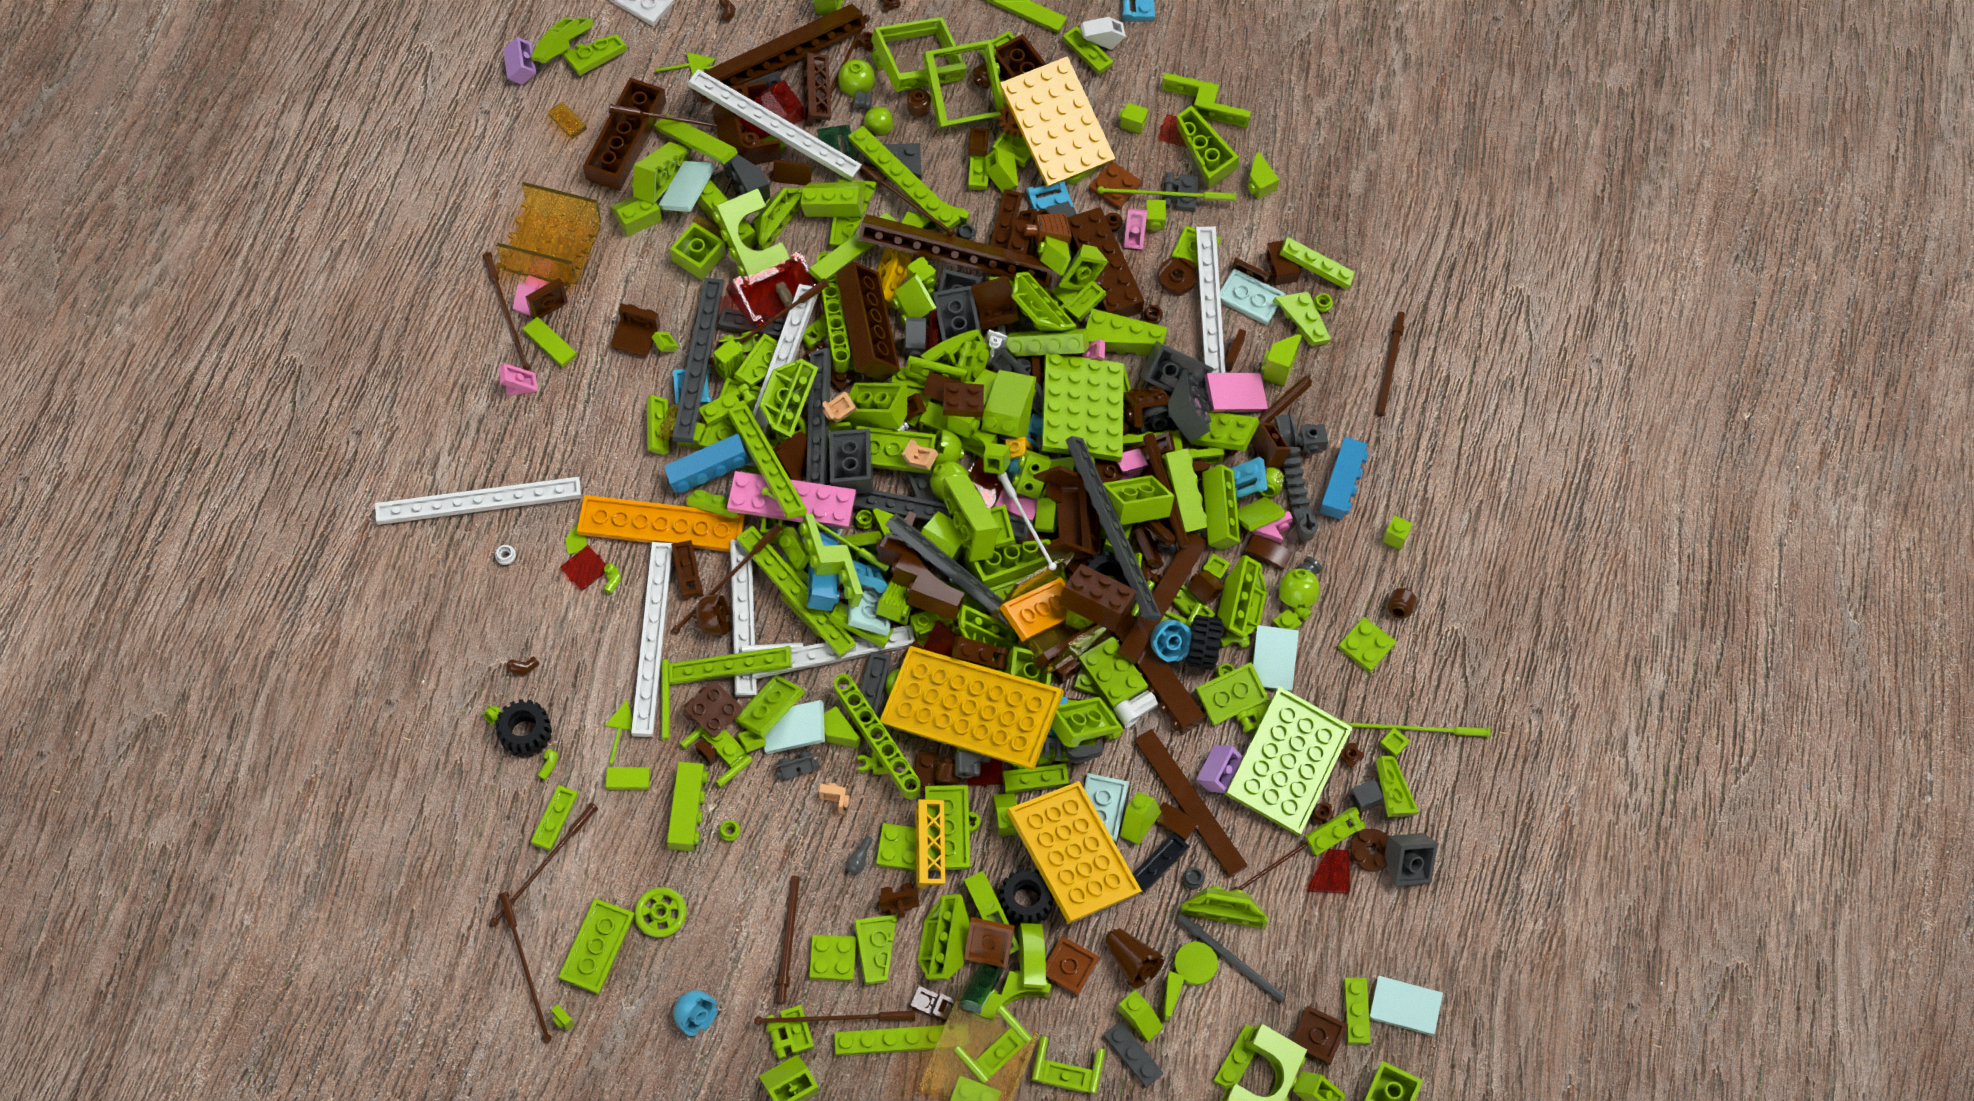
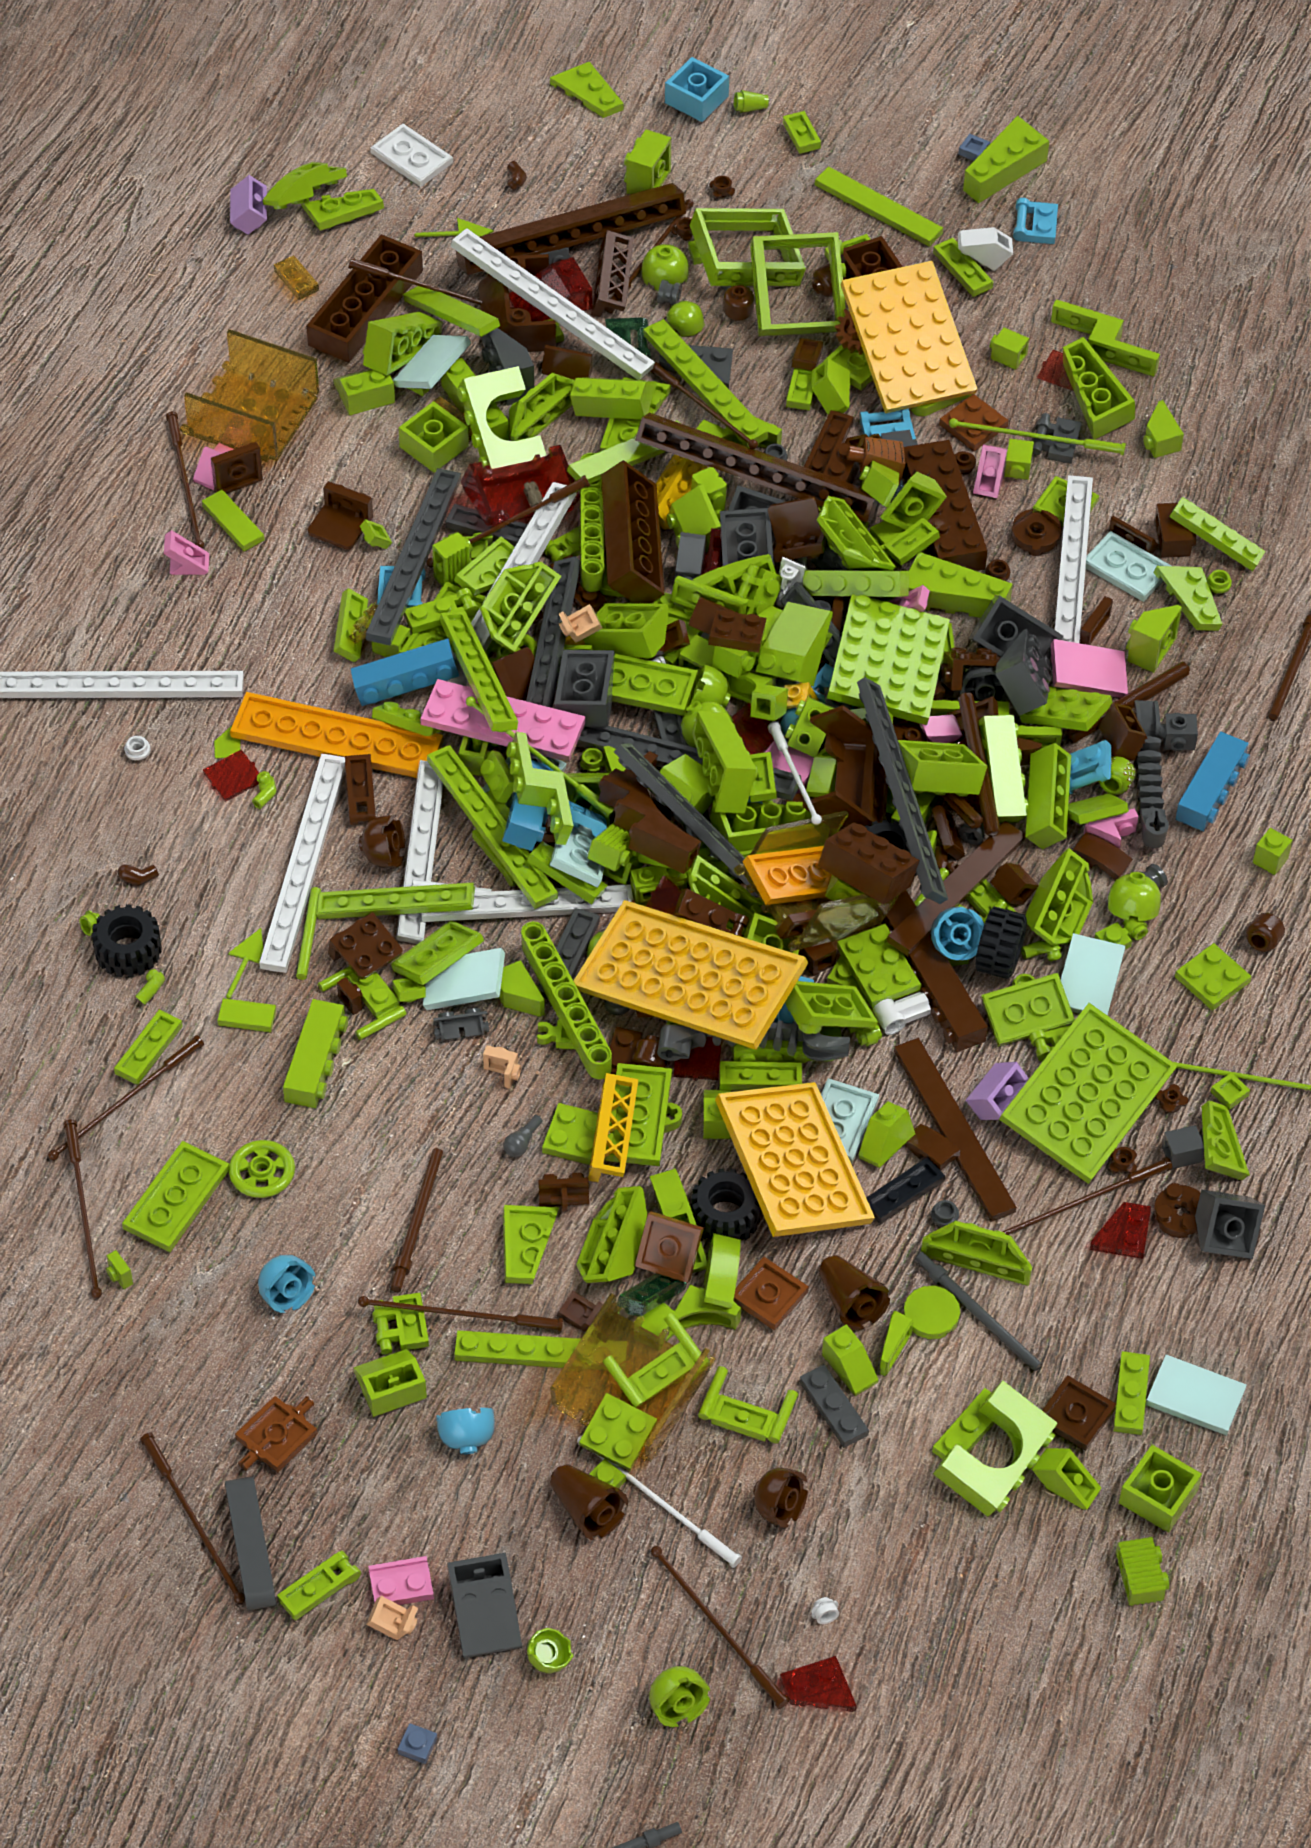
camera: 10 degrees right, 10 degrees down
(729, 824) = (361, 1082): lime plate -> none
(757, 548) = (452, 768): reddish brown piece -> none
(833, 958) = (469, 1248): lime plate -> none
(919, 456) = (671, 690): light nougat bracket -> none
(1217, 566) = (1034, 863): lime plate -> none
(1334, 831) = (1134, 1181): lime plate -> none

